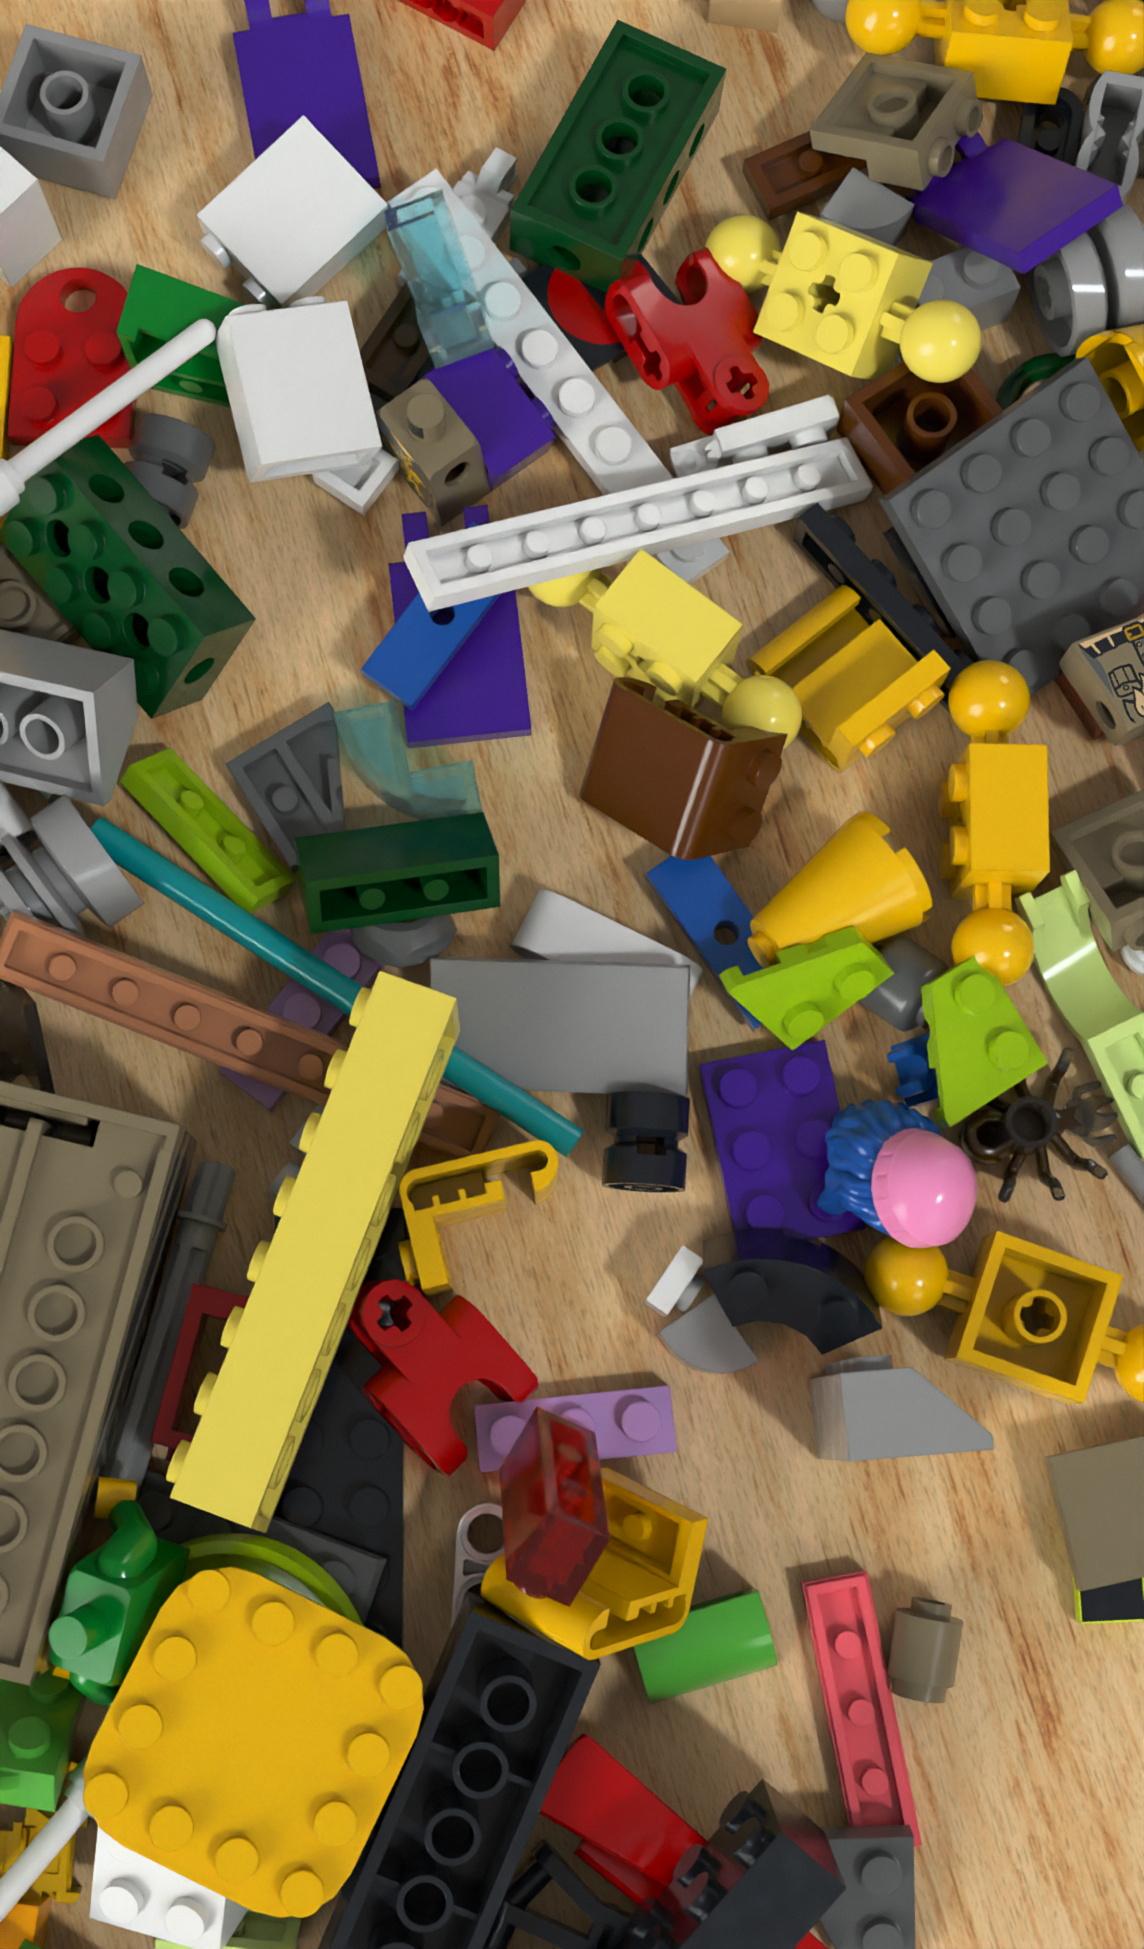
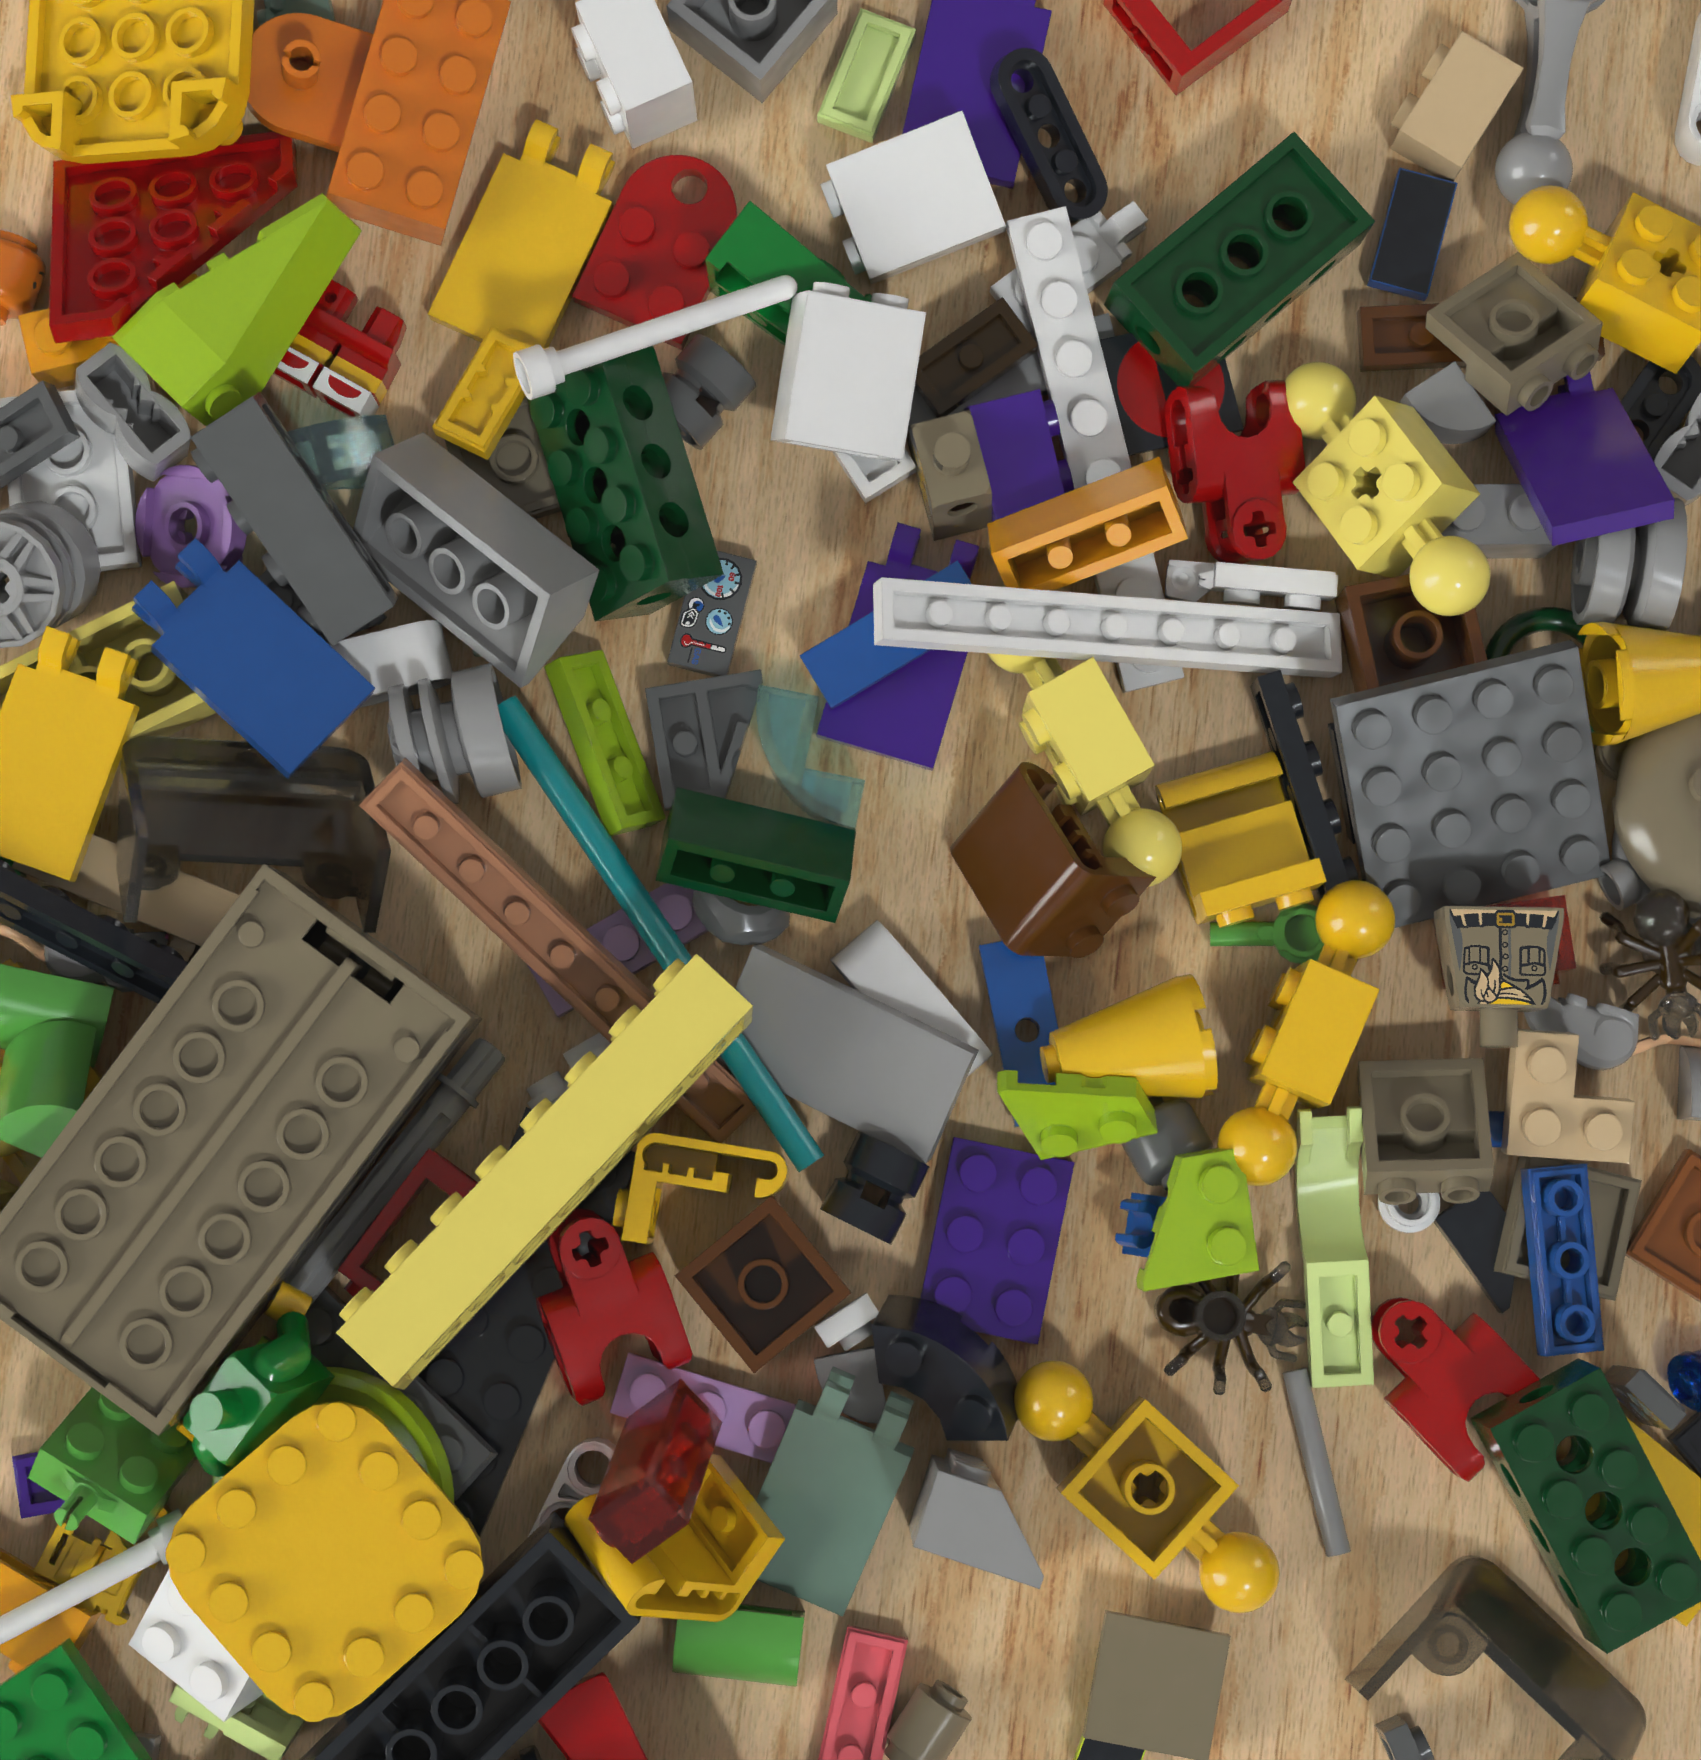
camera: 25 degrees right, 5 degrees up
(202, 137) = (866, 75): none -> yellowish green tile
(264, 677) = (713, 619): none -> dark grey tile
(382, 97) = (1047, 107): none -> black plate
(439, 279) = (1021, 322): clear light blue brick -> none
(578, 1278) = (763, 1284): none -> reddish brown brick
(586, 436) = (1088, 529): none -> light orange brick
(733, 1454) = (832, 1493): none -> sand green tile
(761, 84) = (1412, 234): none -> black tile
(897, 1174) = (1080, 1311): hair -> none
(934, 743) = (1291, 934): none -> bright green plate

